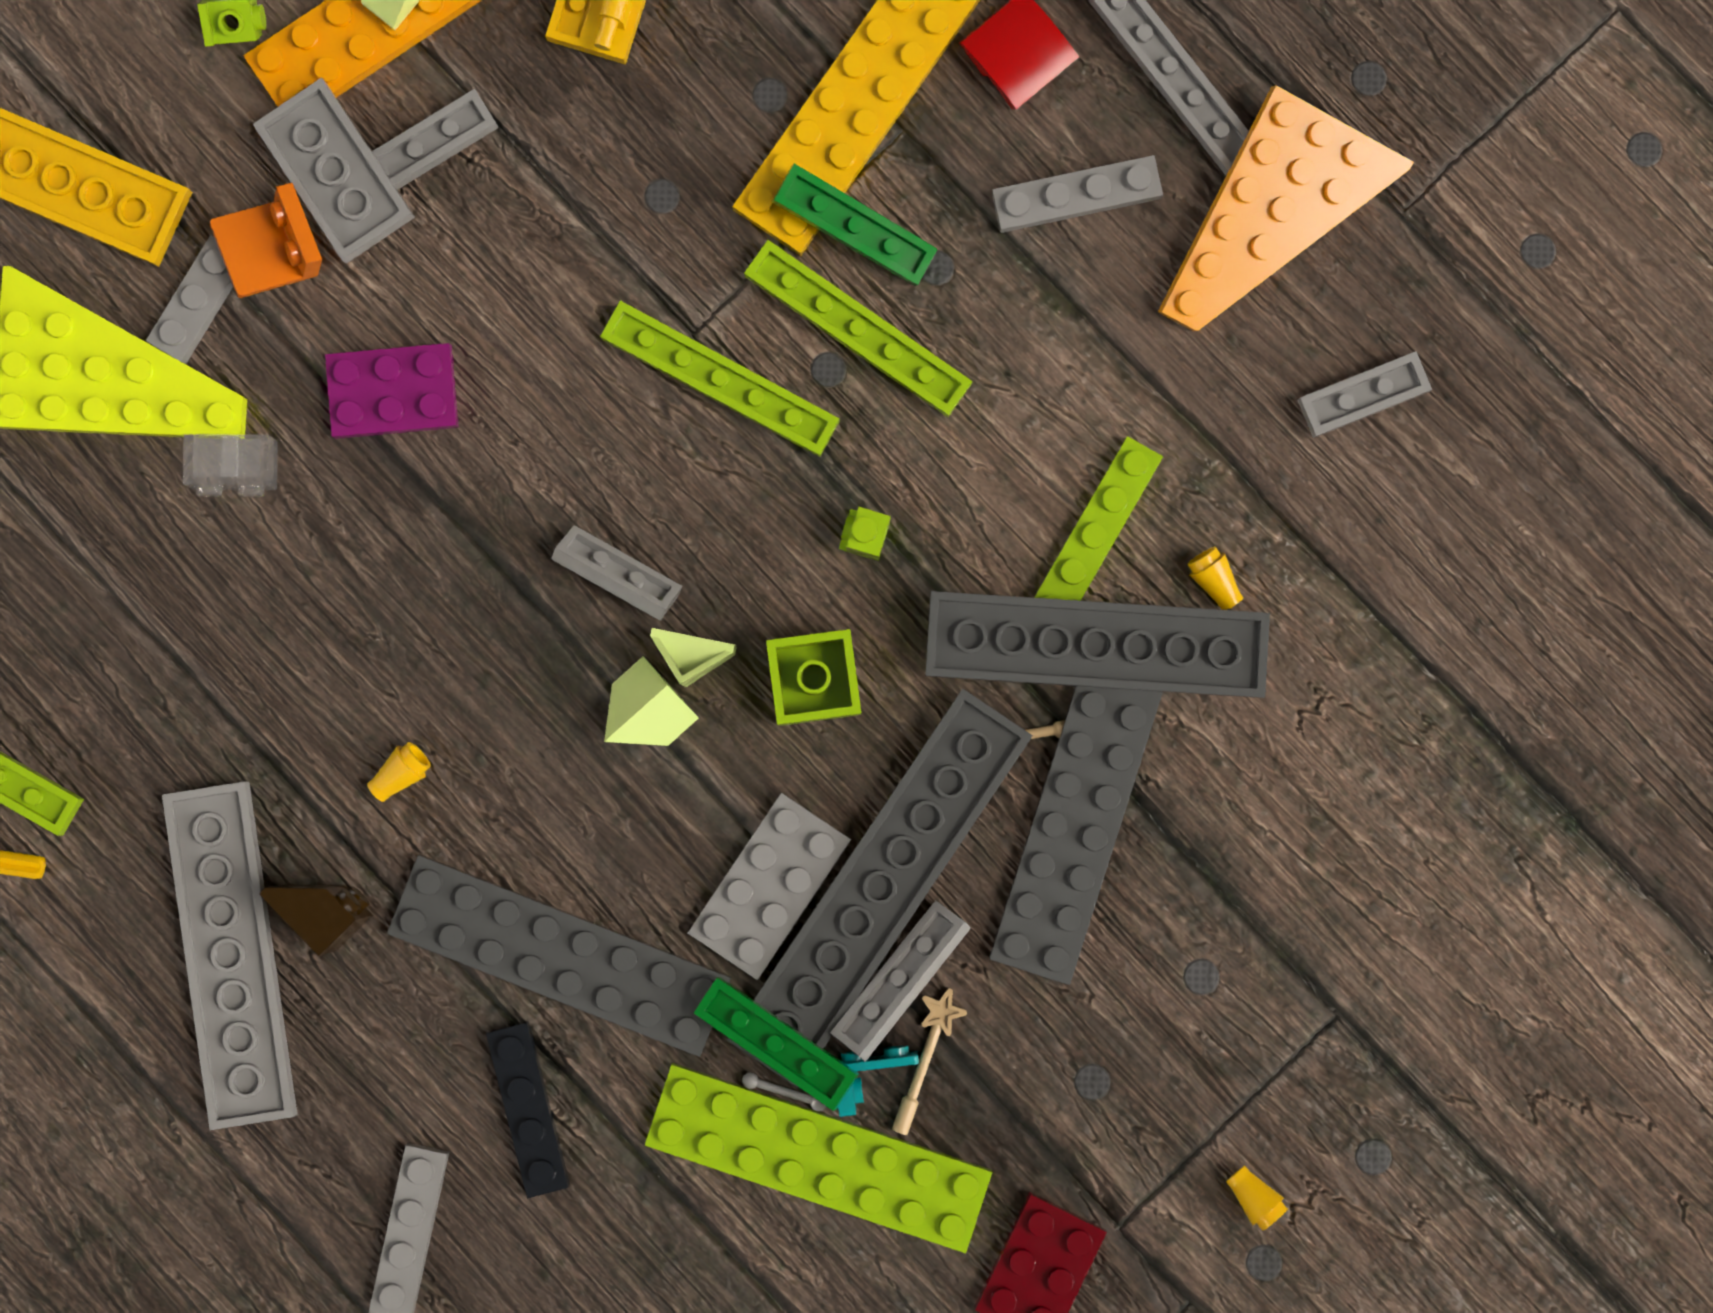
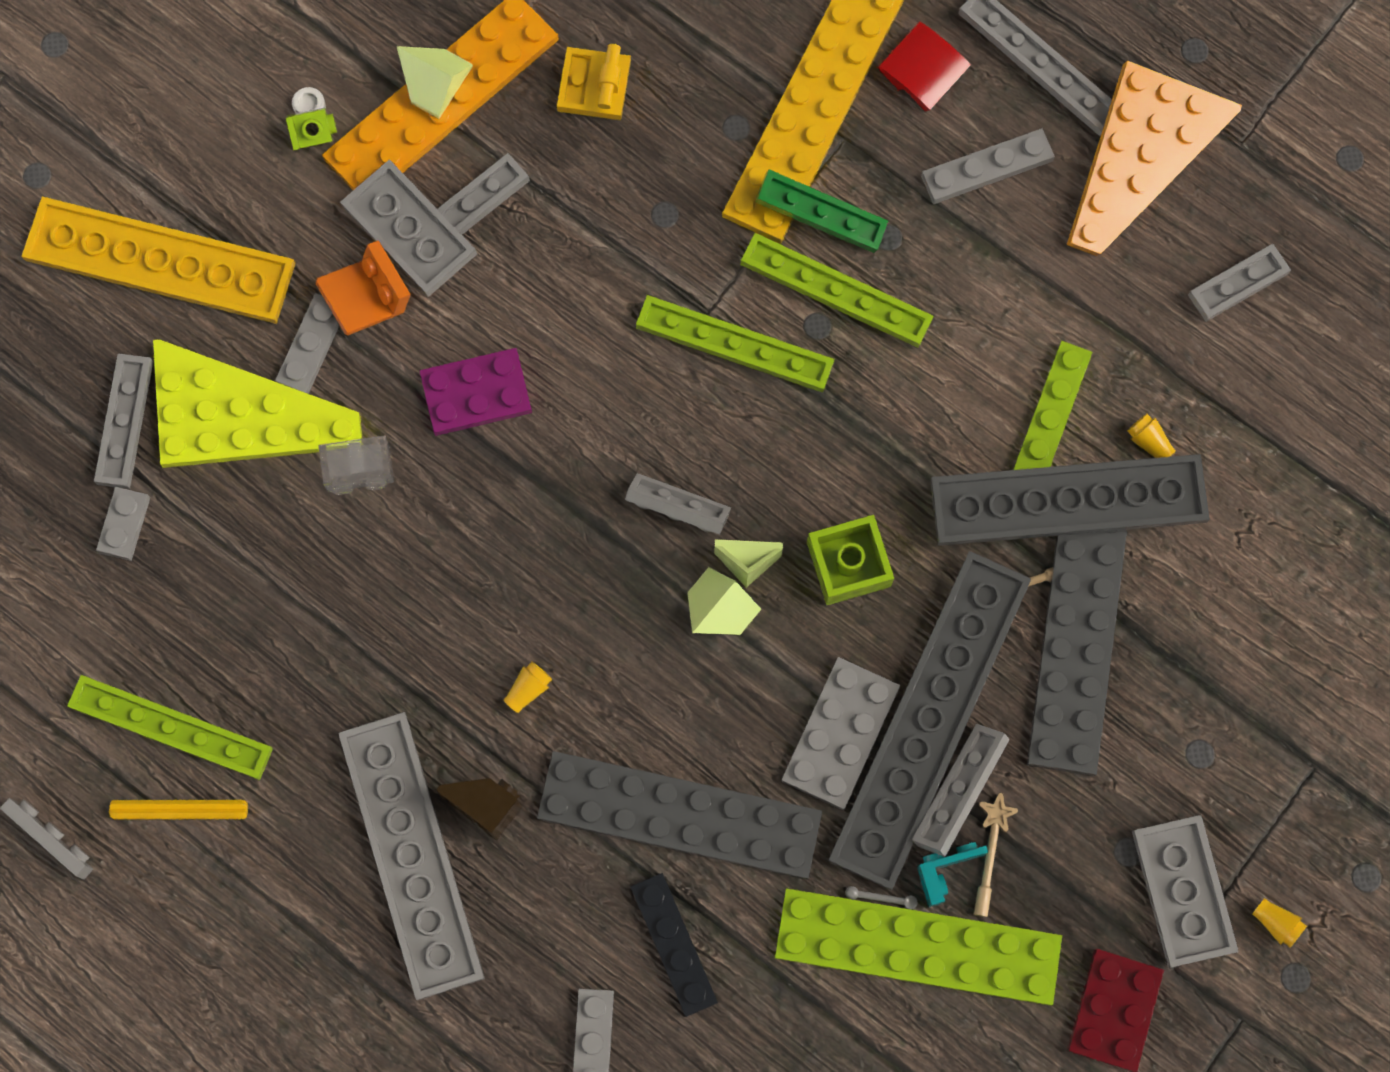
camera: 15 degrees left, 10 degrees down
(776, 1043) = (871, 852): green plate -> none
(864, 533) = (870, 444): lime brick -> none
(1149, 1143) = (1185, 891): none -> light grey plate

